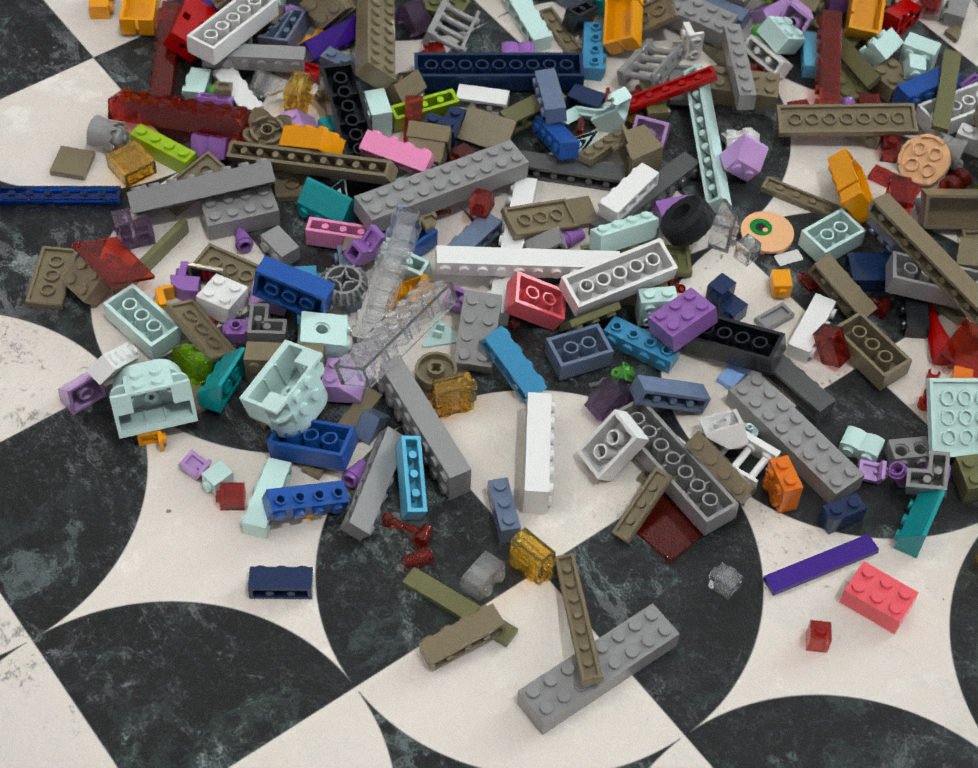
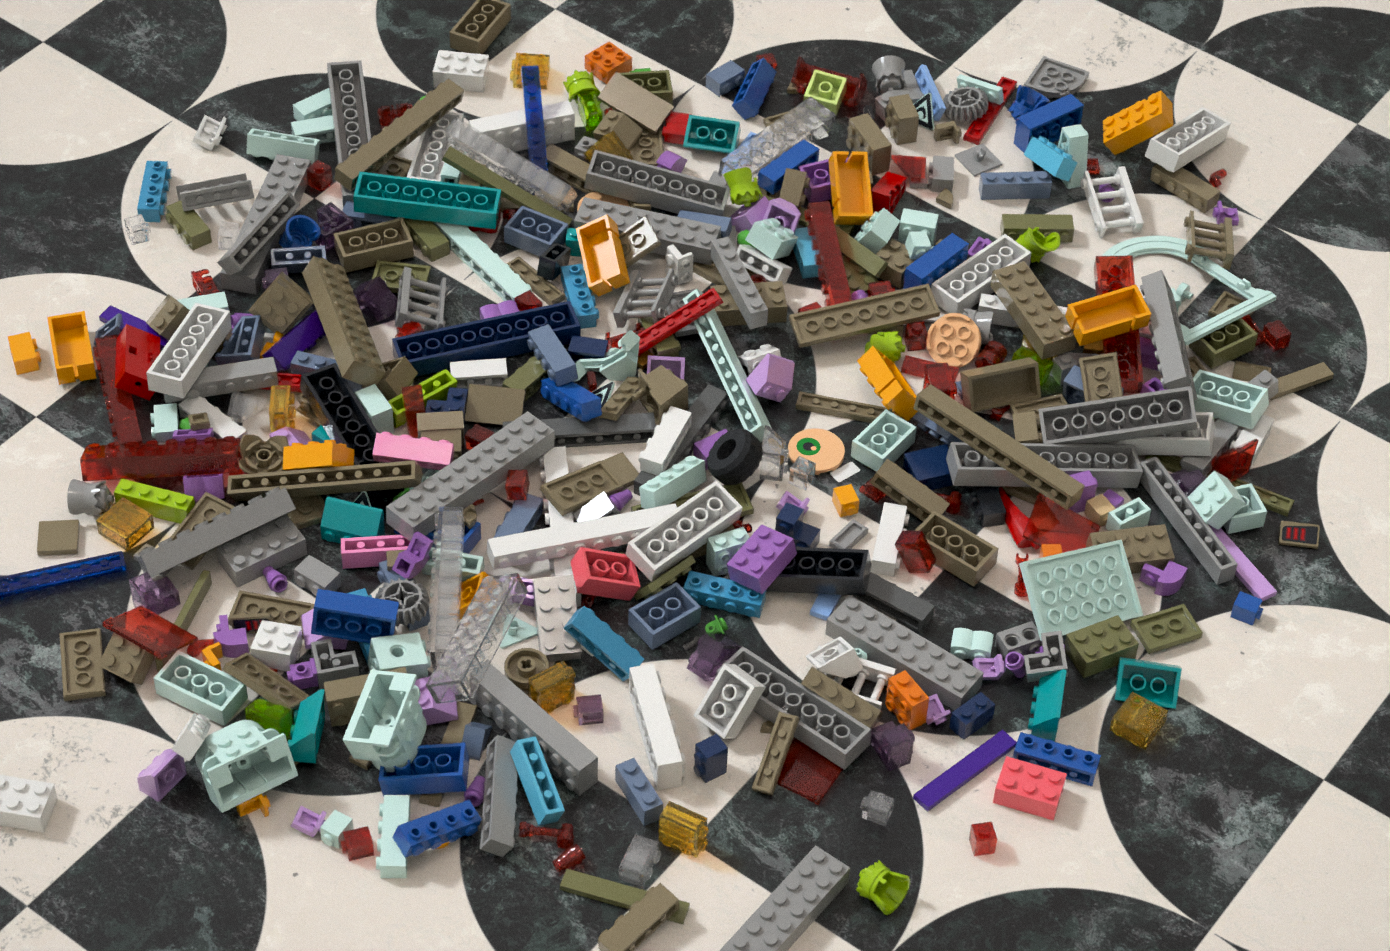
camera: 15 degrees left, 5 degrees down
(155, 283) = (195, 648): none -> clear red arm
(280, 582) = (438, 916): dark blue brick -> none
(482, 422) = (588, 709): none -> clear purple brick
(545, 45) = (527, 301): none -> clear red brick
(578, 620) = (748, 879): dark tan tile -> none
(579, 495) = (710, 758): none -> dark blue brick
(669, 394) = (770, 637): sand blue brick -> none
(706, 660) = (883, 886): none -> lime hat
(731, 273) = (789, 498): none -> lavender bracket
(757, 523) = (893, 744): none -> clear purple brick
(808, 500) = (936, 711): none -> lavender bracket
(861, 150) = (889, 344): none -> lime hat
(923, 578) = (1077, 763): none -> blue brick
(946, 91) = (957, 264): olive tile -> none
(948, 235) = (998, 413): none -> clear red hand

